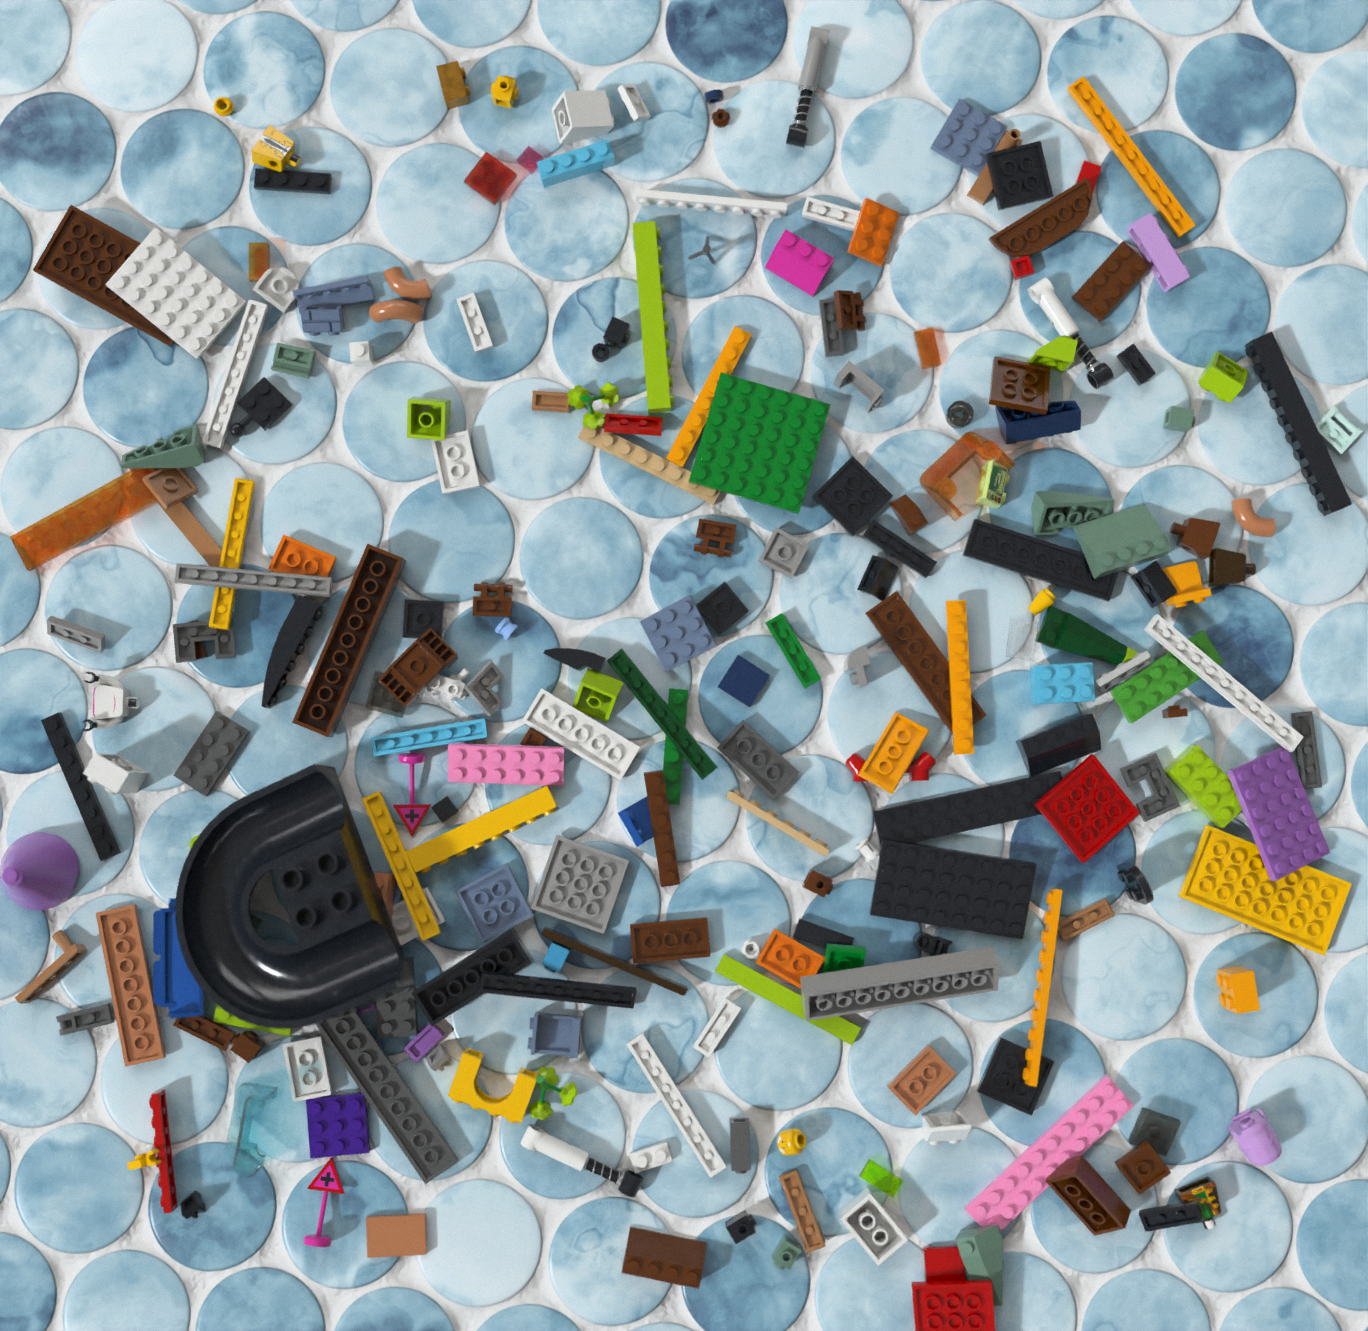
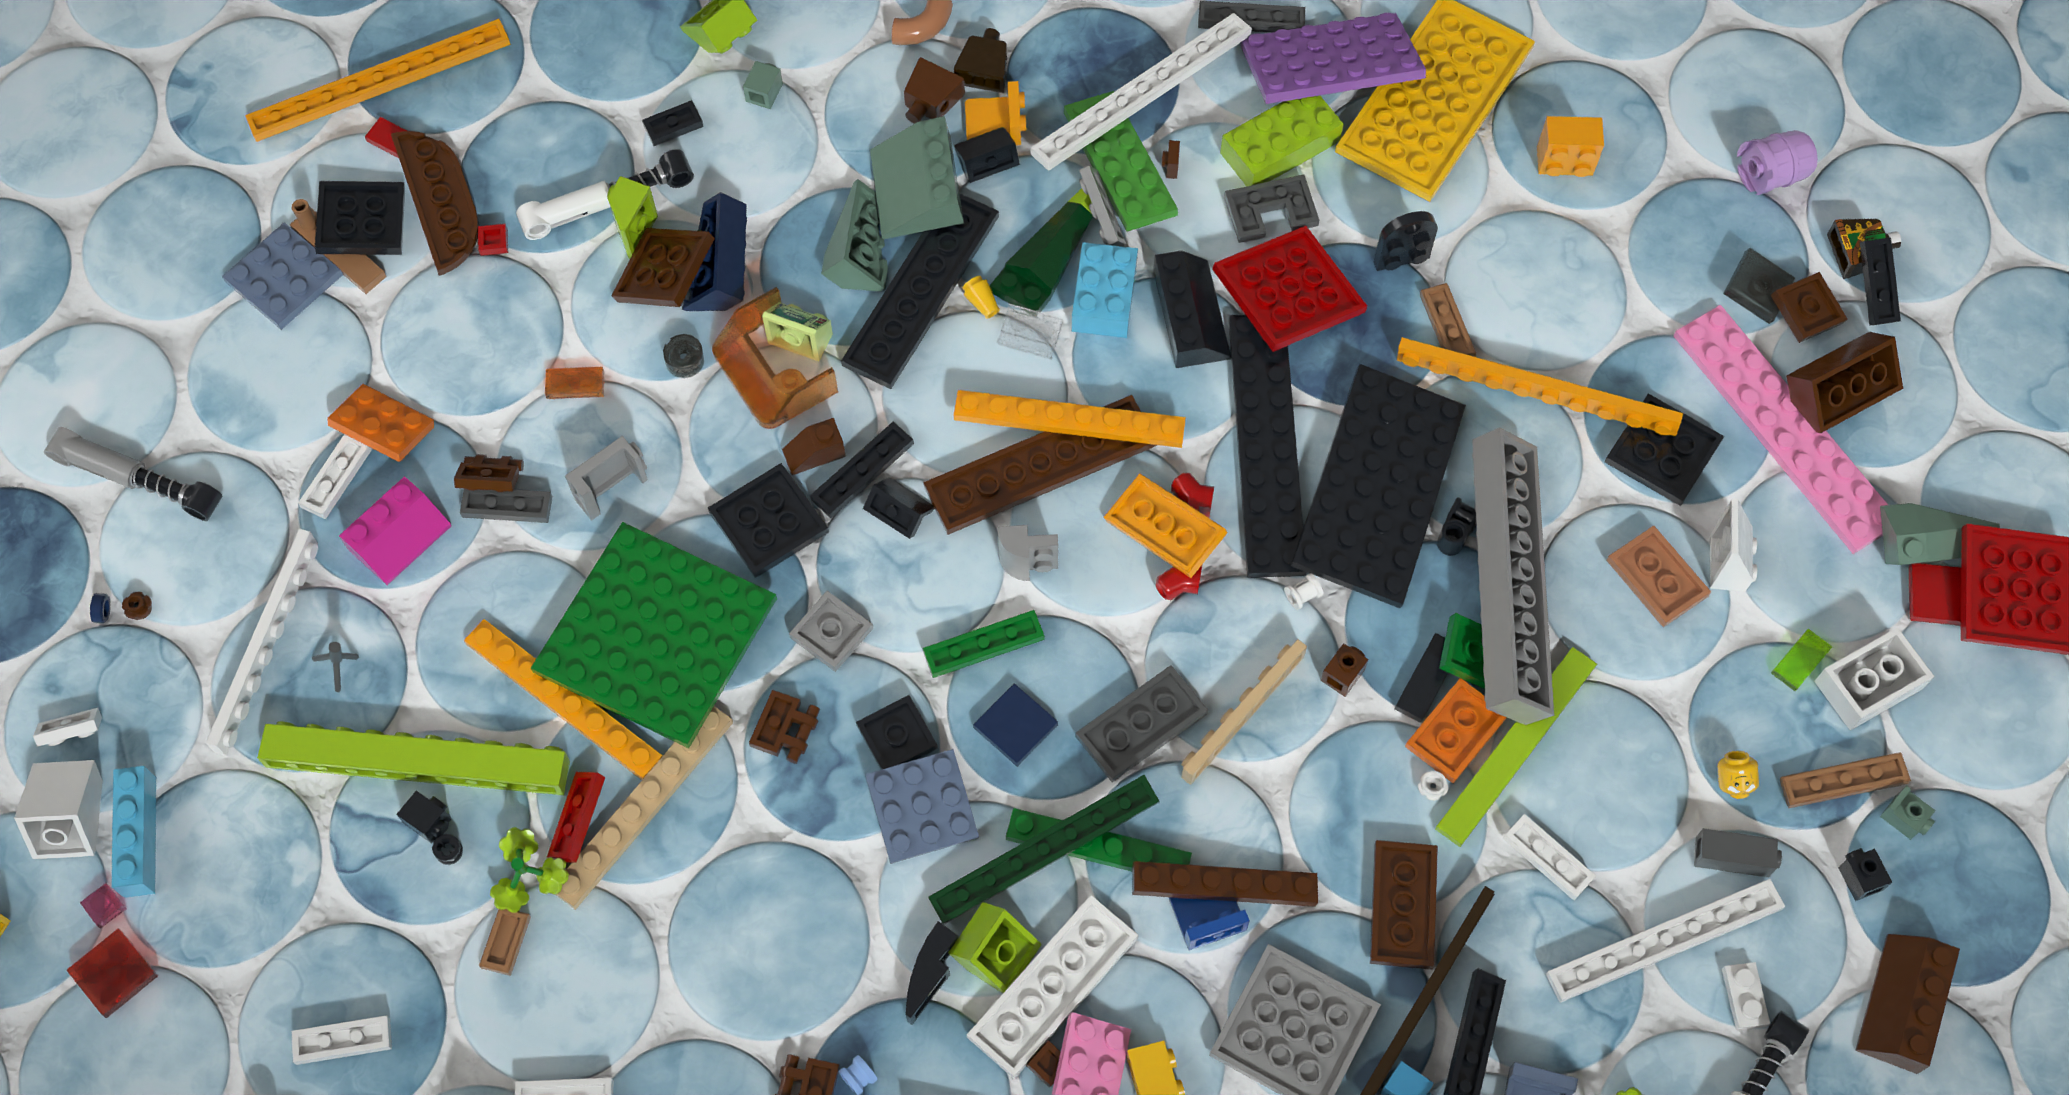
camera: 75 degrees left, 20 degrees down
(1111, 281) = (546, 134): reddish brown plate -> none
(1158, 252) = (524, 69): lavender brick -> none

